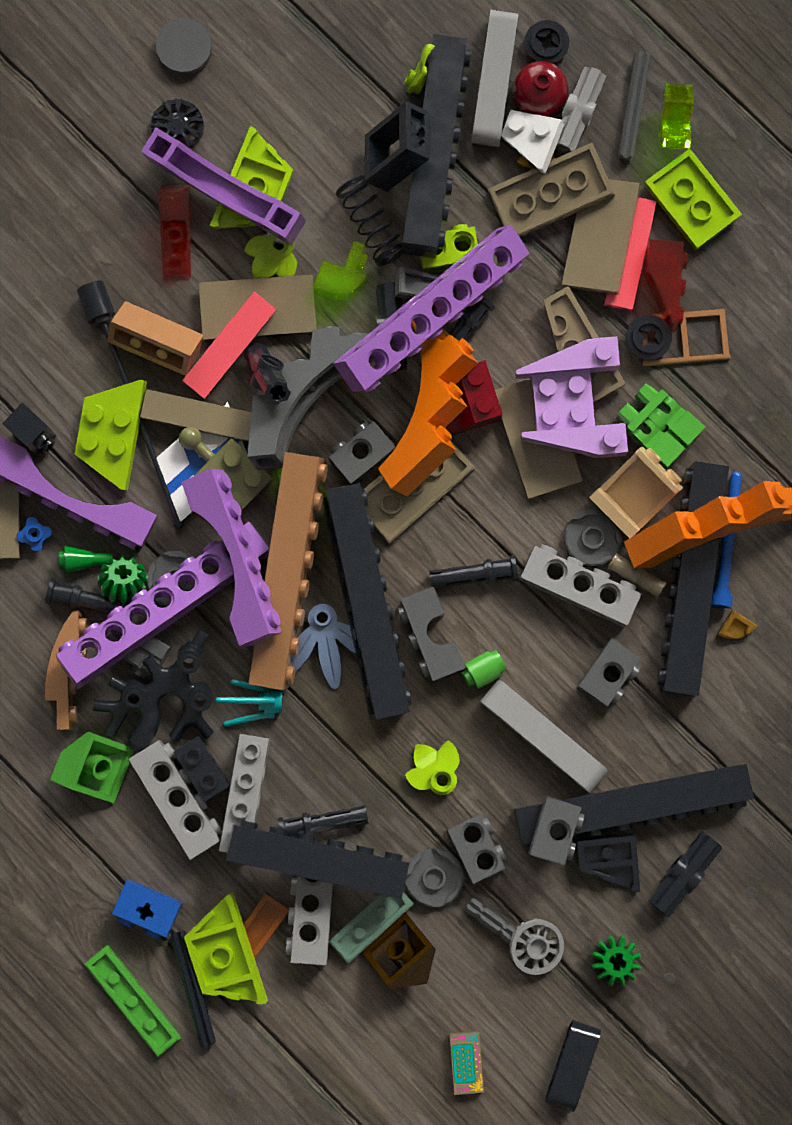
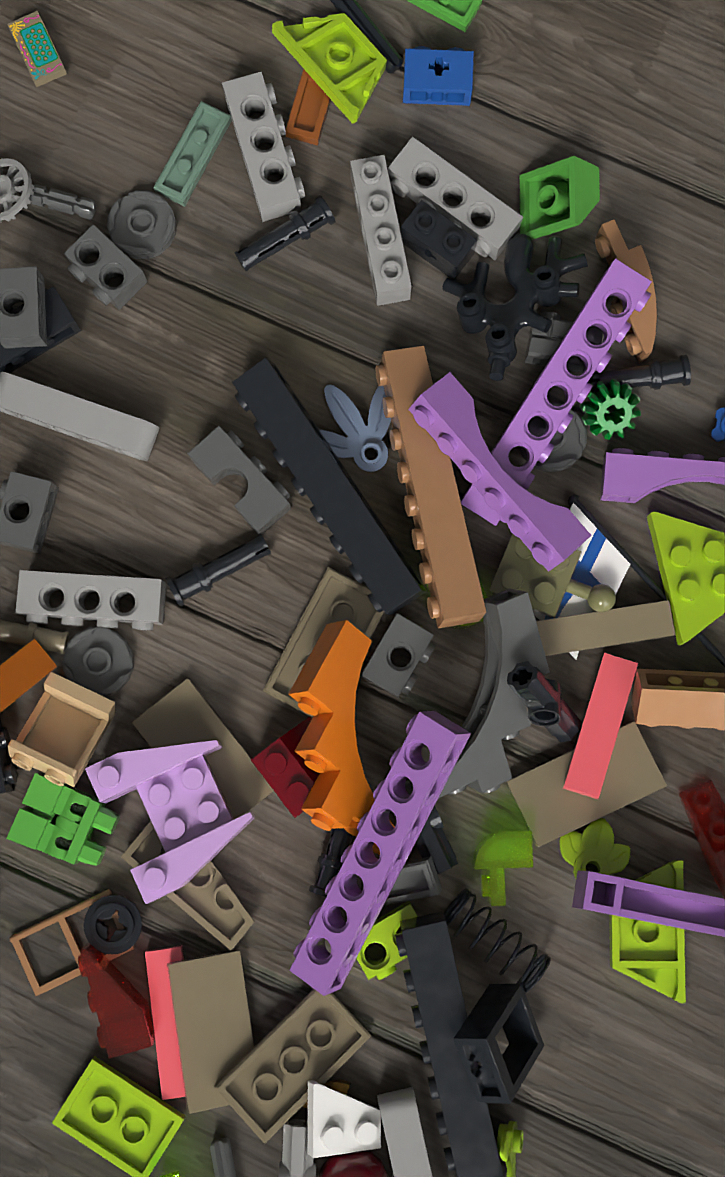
camera: 160 degrees right, 0 degrees up
(77, 559) = (670, 416): green cone -> none
(269, 701) = (395, 336): teal plant -> none
(317, 860) = (272, 179): black brick -> none
(401, 954) = (145, 125): dark brown slope -> none
(431, 765) = (188, 341): lime plate -> none
(483, 669) = (168, 464): bright green brick -> none

